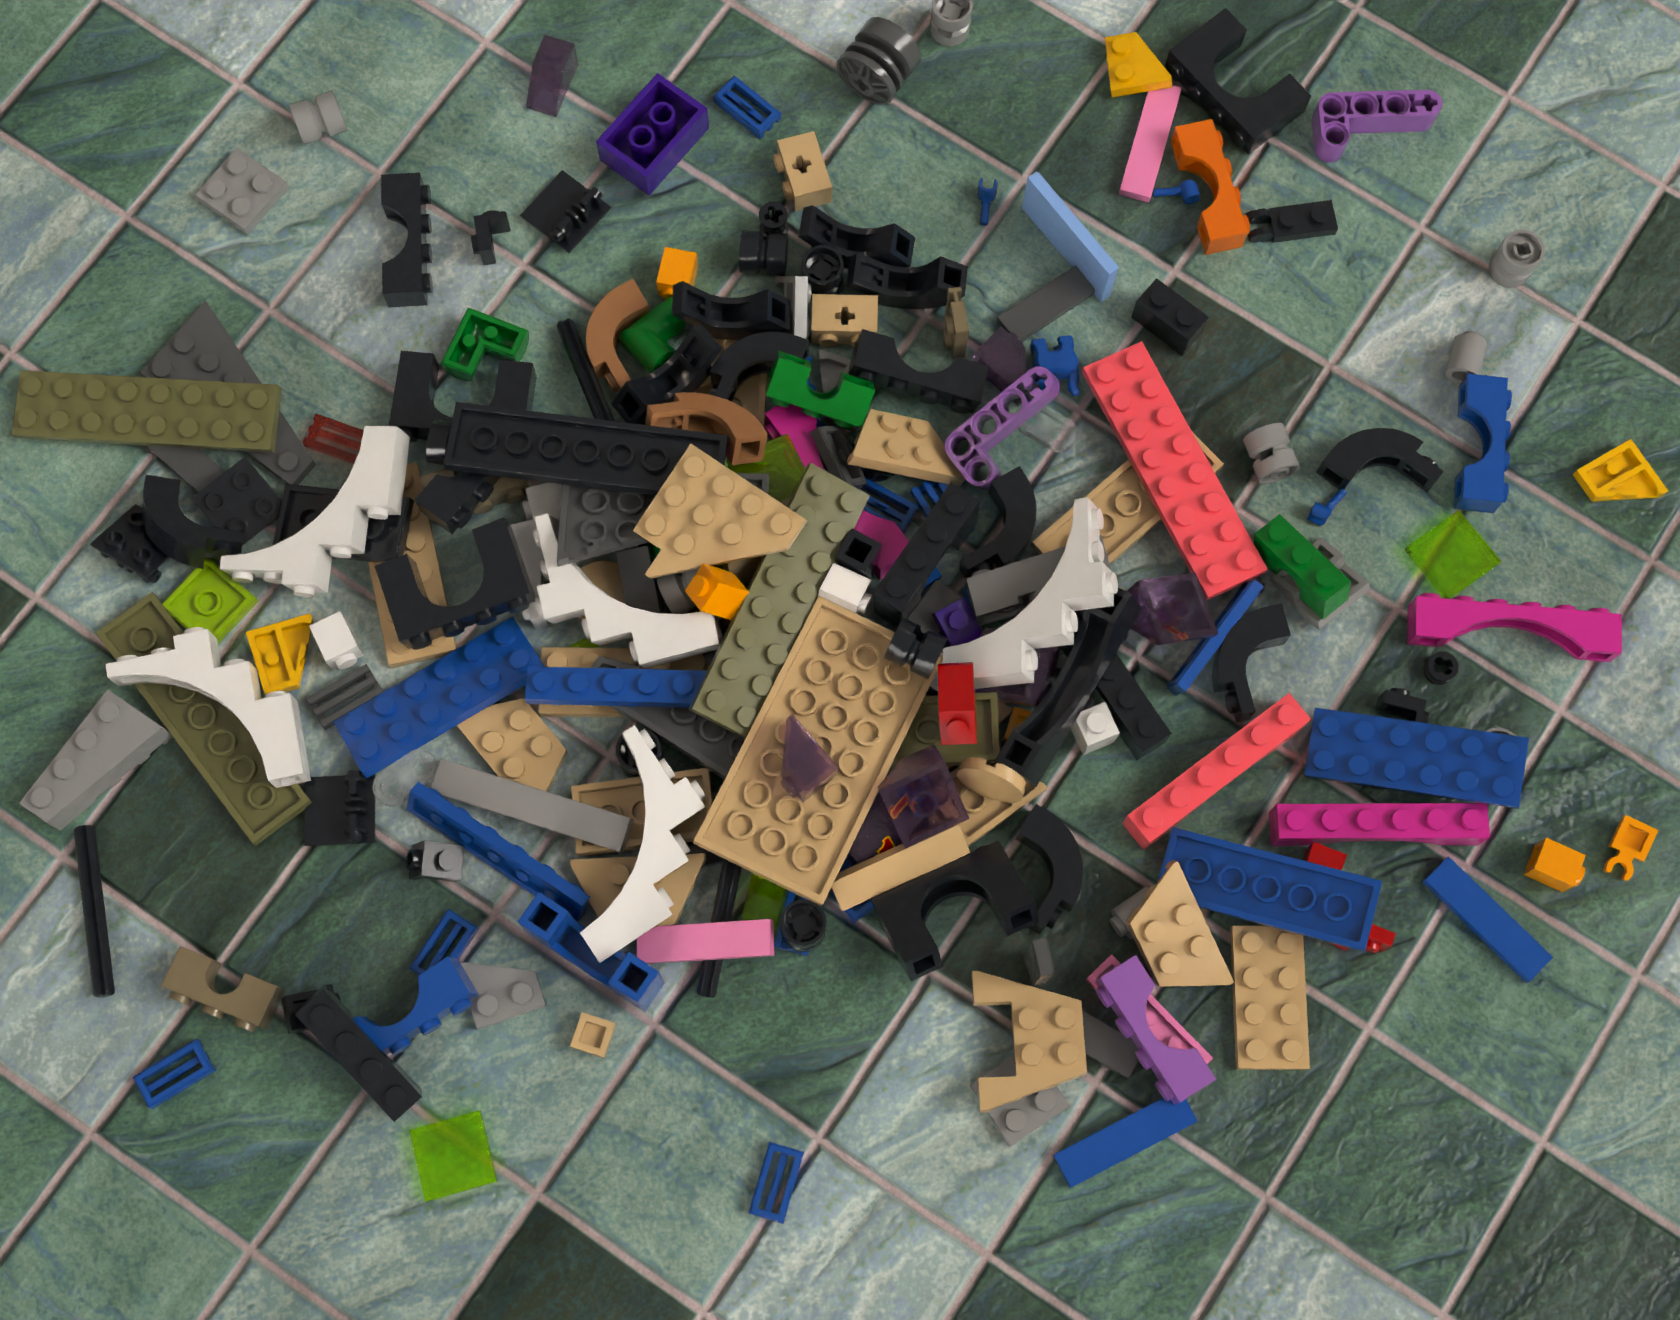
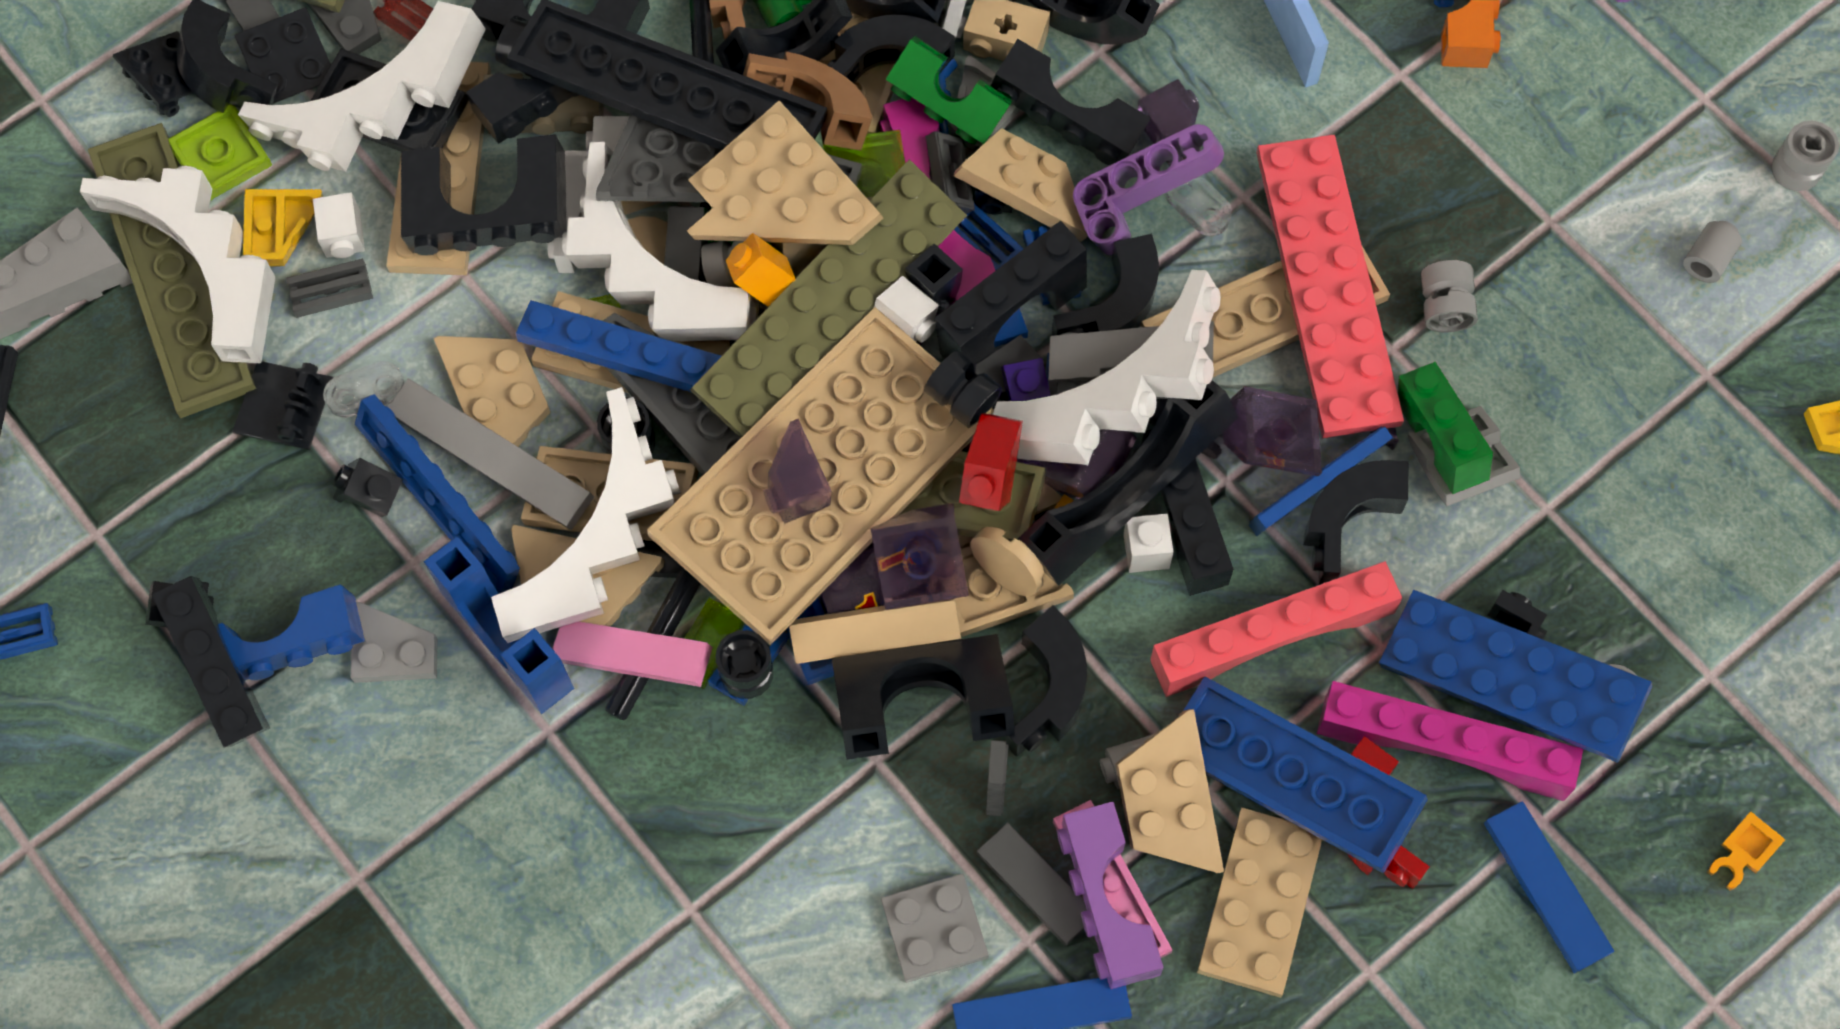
camera: 20 degrees right, 5 degrees down
(194, 978) = (67, 536): dark tan arch -> none
(436, 935) = (344, 564): blue tile -> none
(438, 697) = (426, 314): blue plate -> none
(453, 1156) = (279, 809): clear neon green tile -> none
(593, 1035) = (475, 721): tan plate -> none
(767, 1213) = (641, 951): blue tile -> none
(956, 324) = (1126, 62): dark tan plate -> none
(1045, 1039) = (981, 870): tan wing -> none
(1047, 304) = (1241, 72): dark grey tile -> none
(1060, 362) = (1236, 137): blue animal -> none
(1169, 316) = (1376, 119): black brick -> none
(1293, 222) = (1553, 54): black hinge -> none
(1320, 513) = (1488, 379): blue hand -> none
(1379, 448) = (1577, 324): black arch -> none
(1441, 658) = (1584, 578): black bush -> none
(1452, 555) = (1631, 467): clear neon green tile -> none
(1484, 405) = (1716, 310): blue arch -> none
(1555, 865) = (1649, 847): light orange brick -> none
(1583, 634) = (1759, 592): dark pink arch -> none

